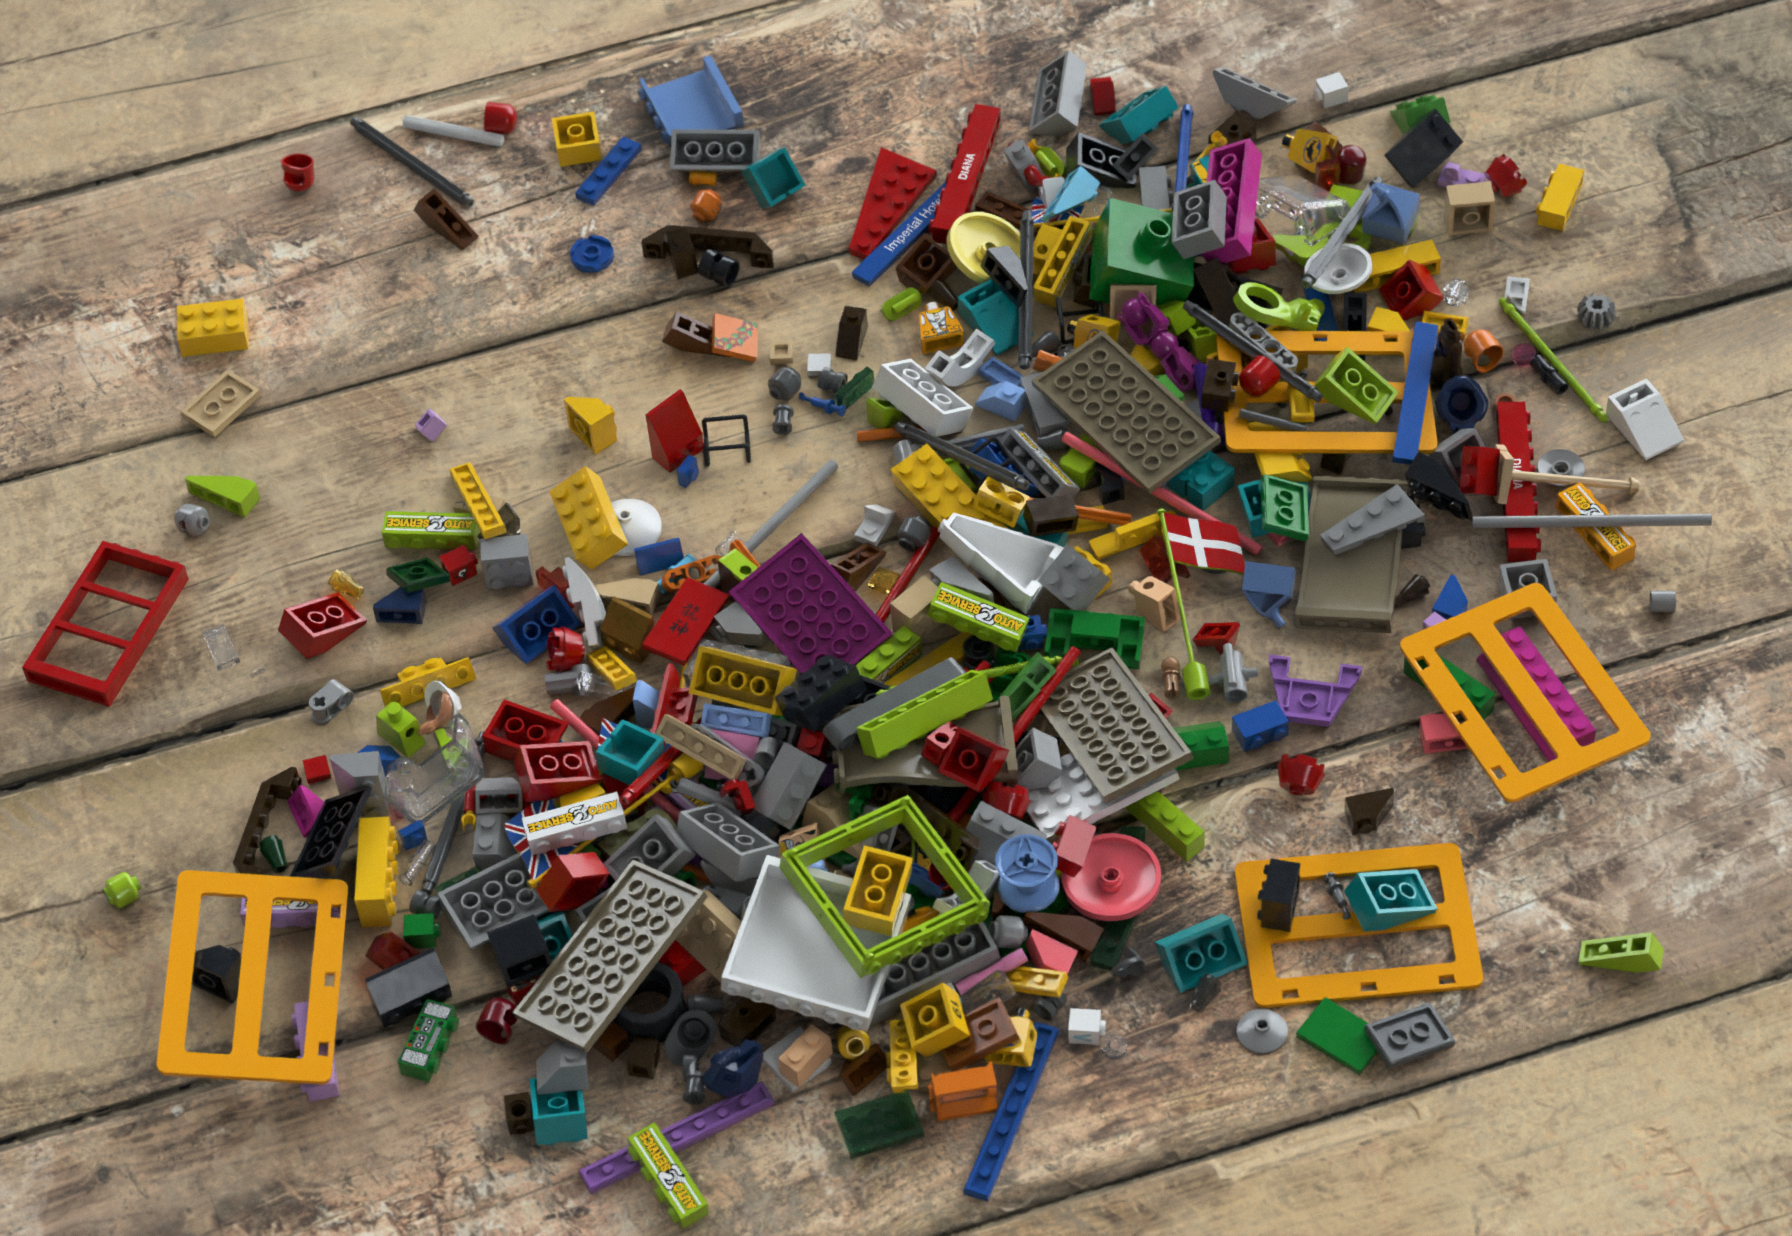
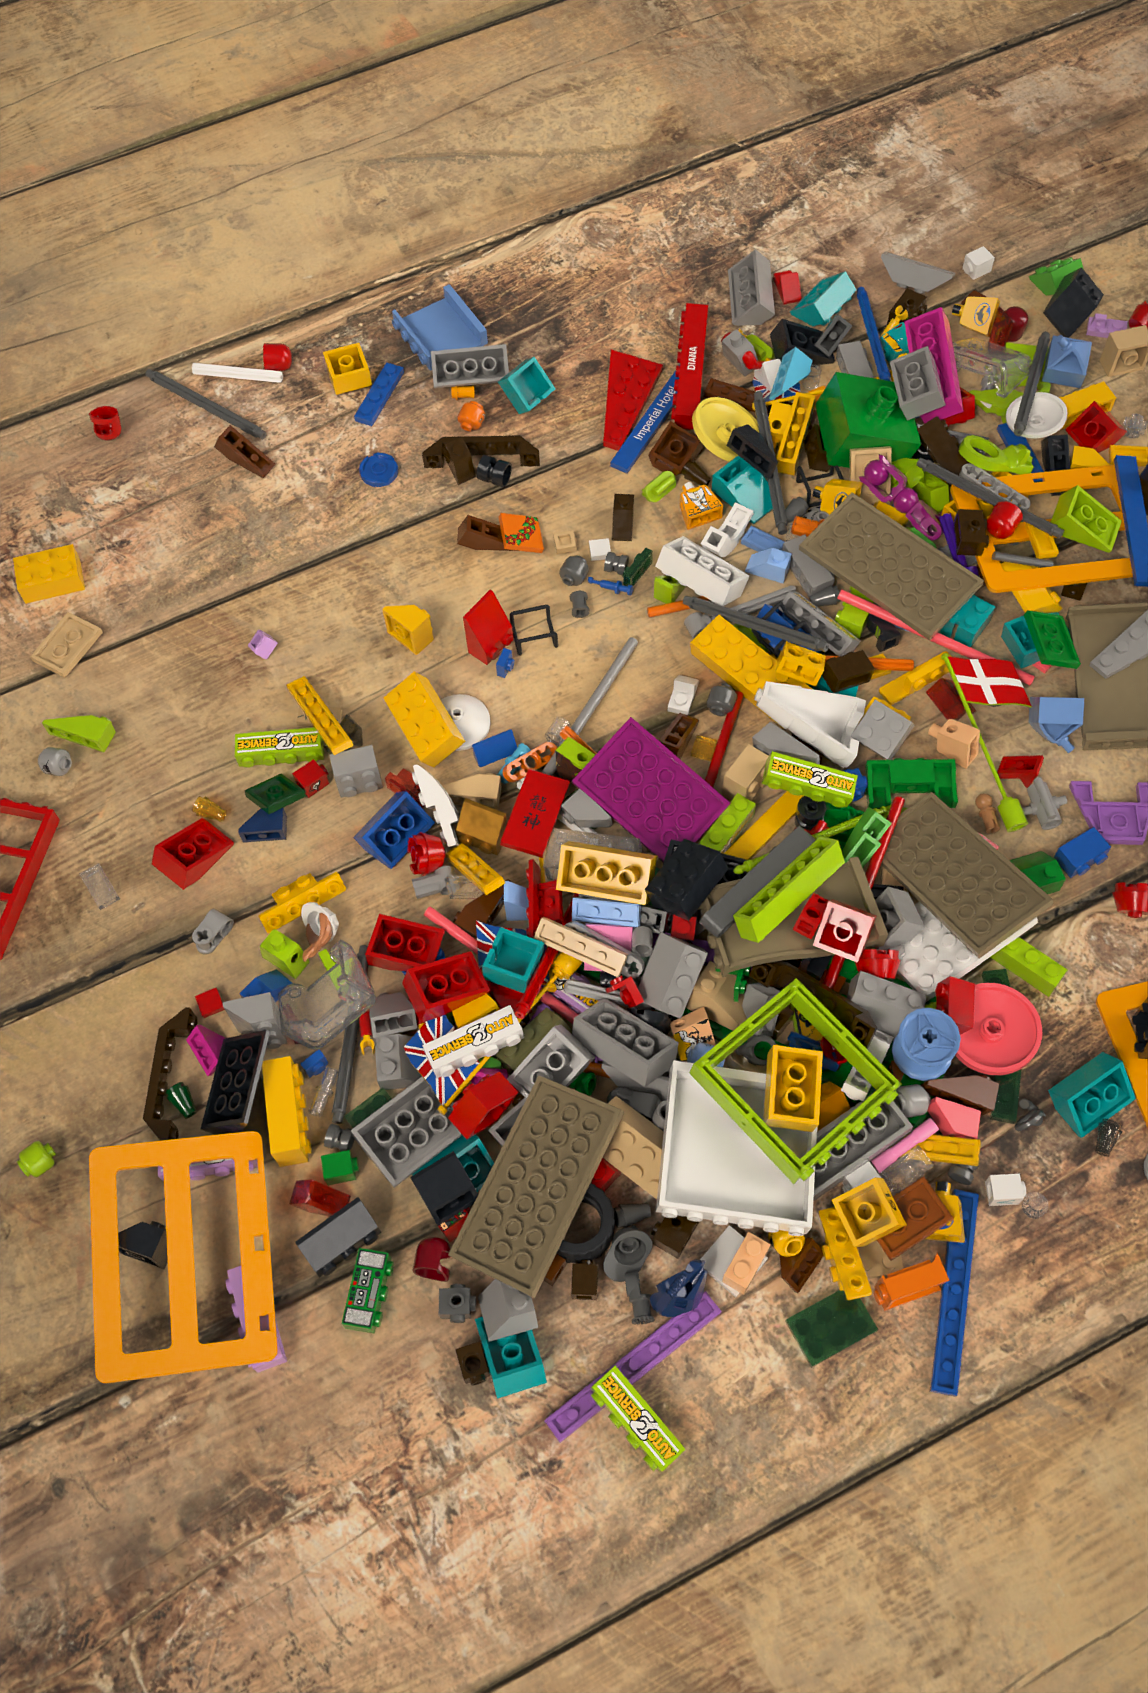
camera: 10 degrees left, 10 degrees up
(512, 1060) = (450, 1296): none -> dark grey brick

